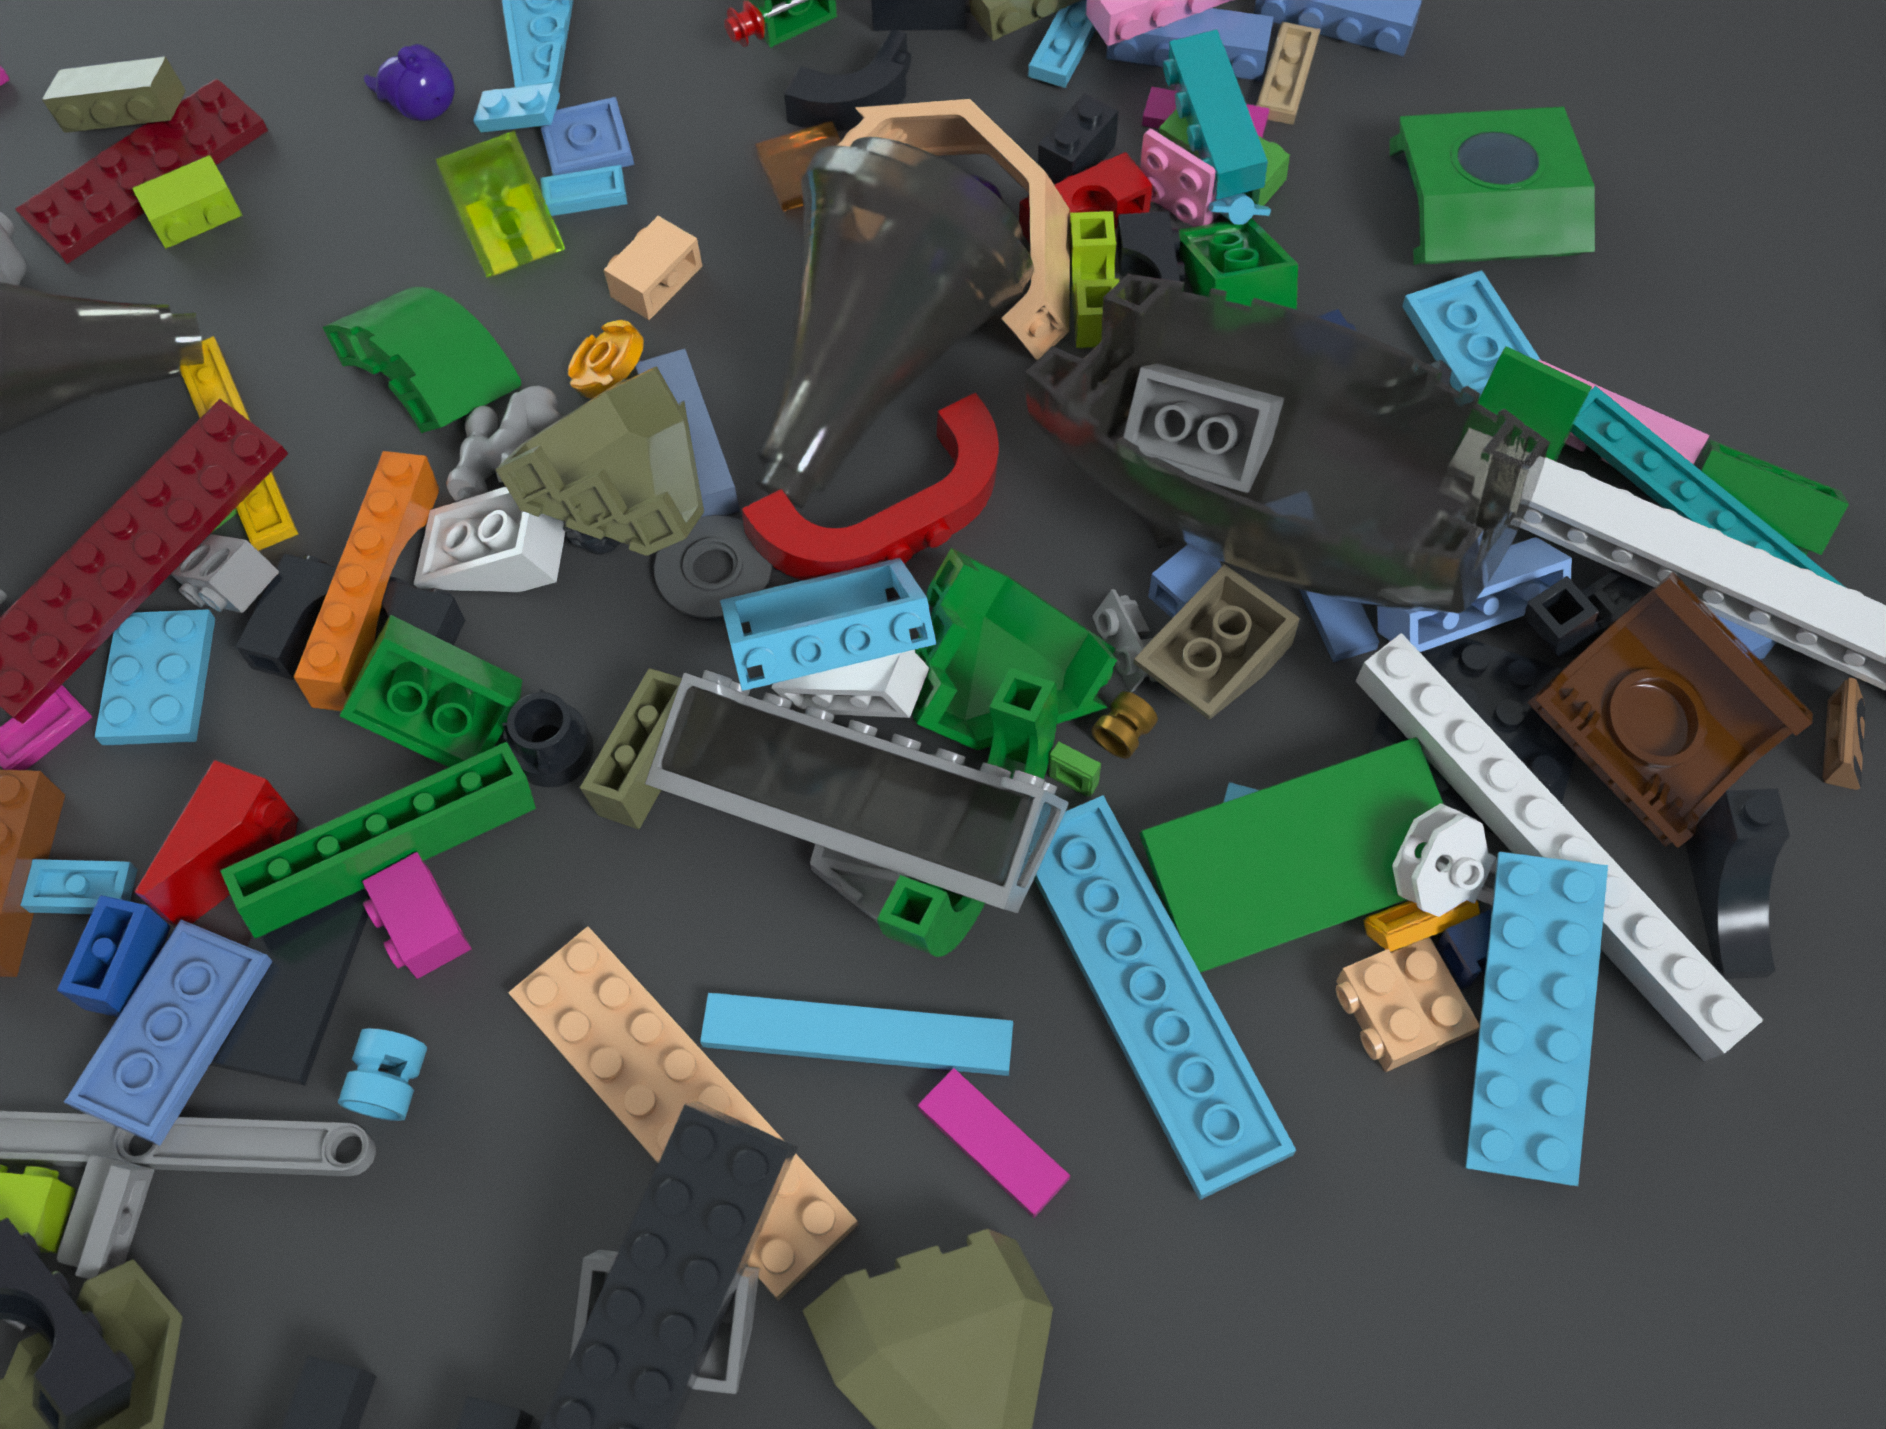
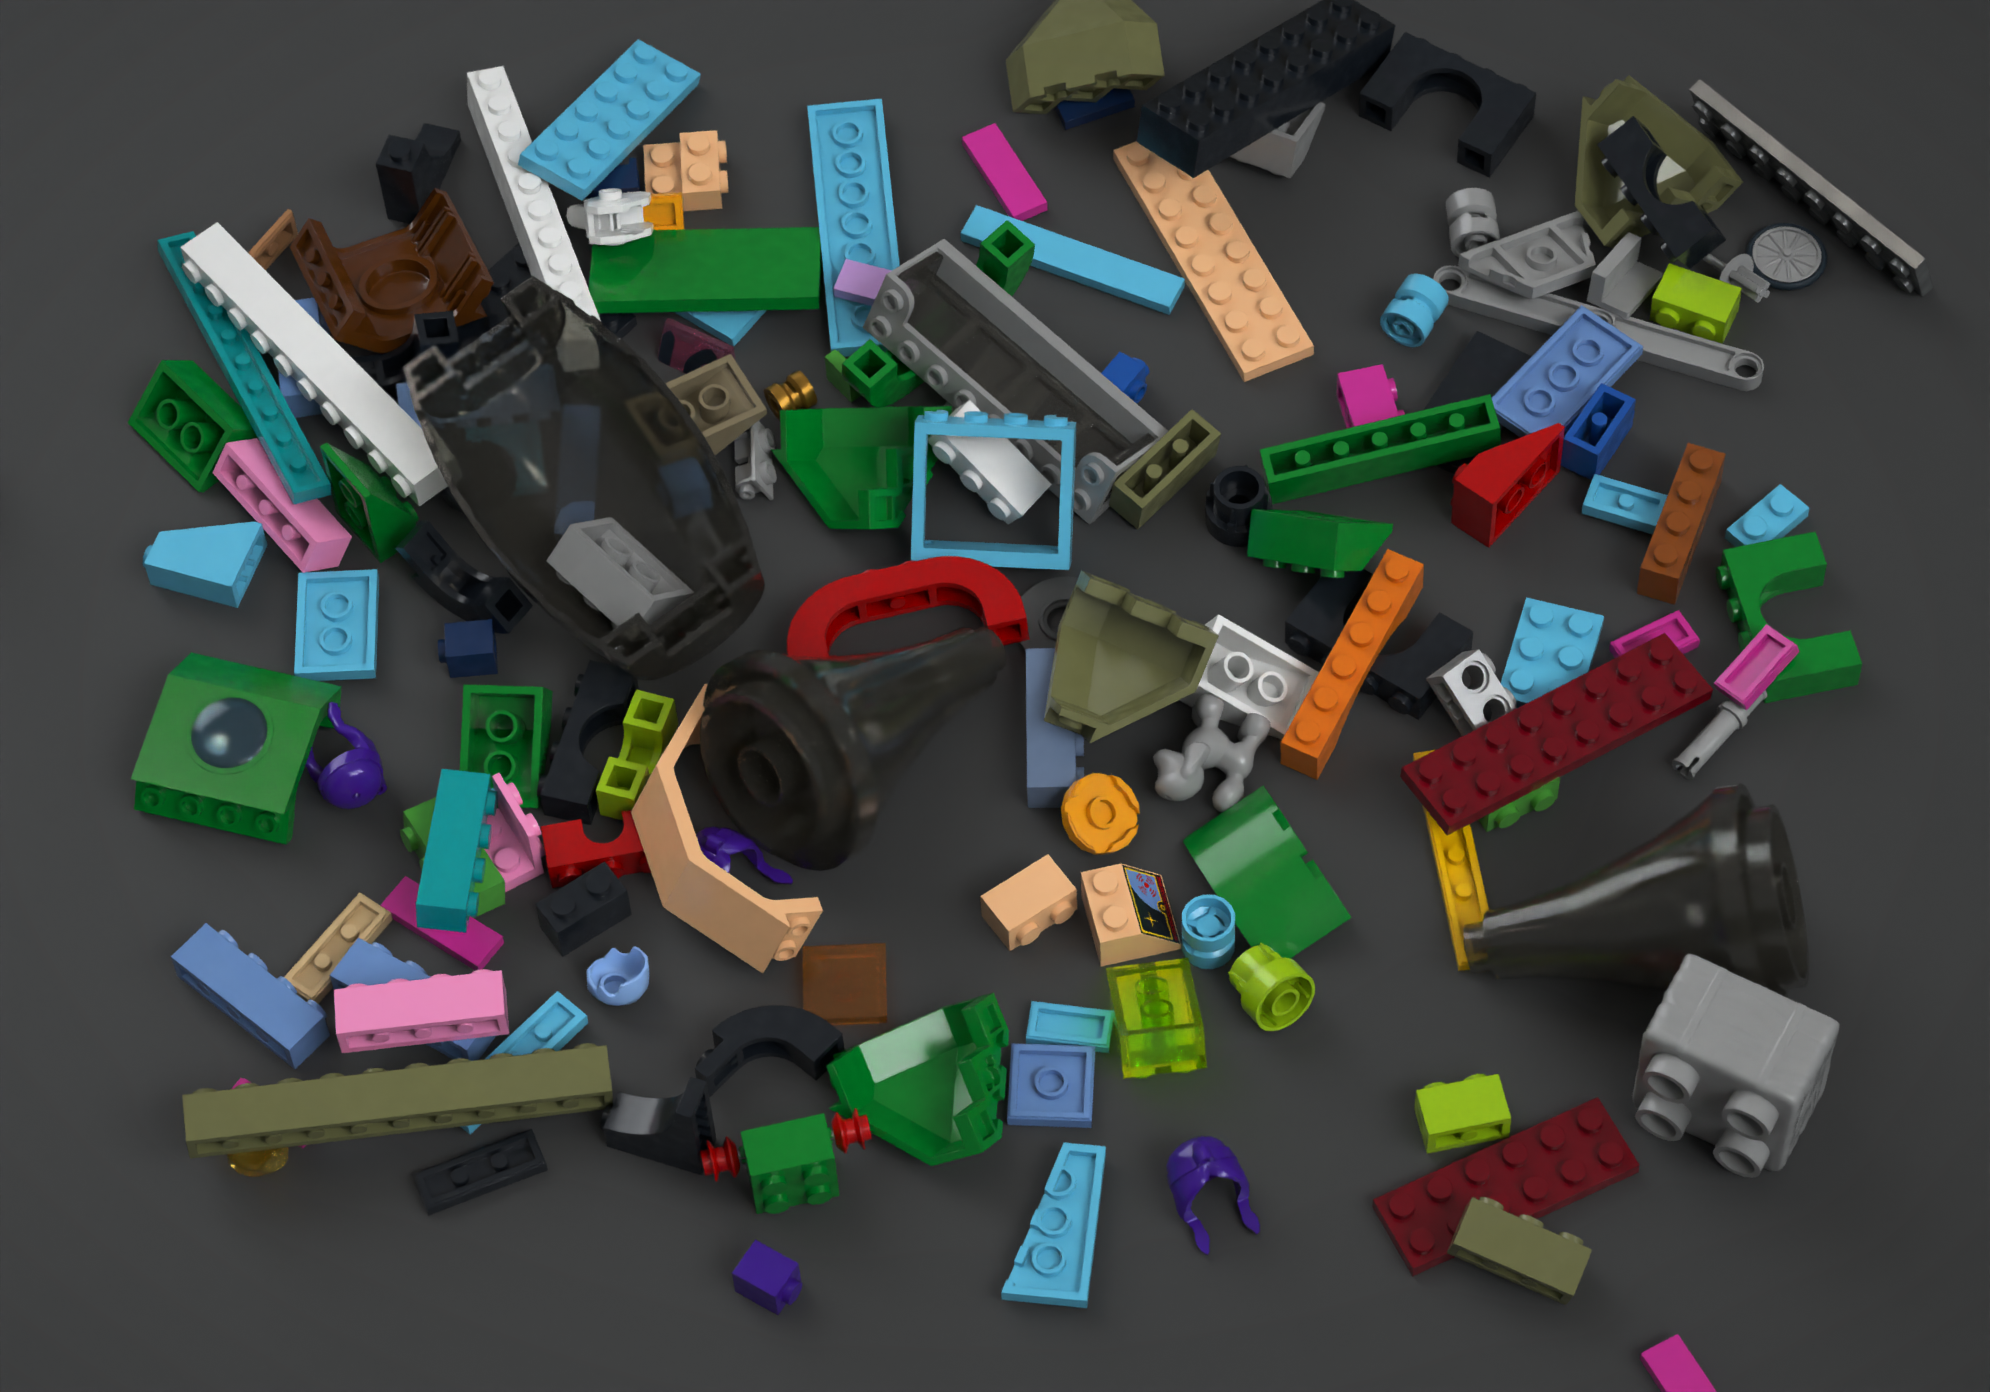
camera: 160 degrees left, 5 degrees down
(223, 1210) = (1535, 258): none -> light grey wing
(324, 1241) = (1471, 219): none -> light grey wheel
(389, 243) = (1271, 987): none -> lime piece
(465, 276) = (1208, 931): none -> medium azure wheel
(516, 107) = (1109, 1126): medium azure plate -> none
(552, 284) = (1128, 913): none -> light nougat slope
(690, 90) = (930, 1081): none -> green panel
(734, 857) = (1128, 375): none -> blue brick
(1015, 100) = (619, 977): none -> light blue hair
(1083, 886) = (859, 282): none -> lavender tile
(1260, 755) = (689, 348): none -> clear pink slope
(1361, 192) = (353, 776): none -> dark purple hair
(1648, 351) = (207, 560): none -> medium azure slope

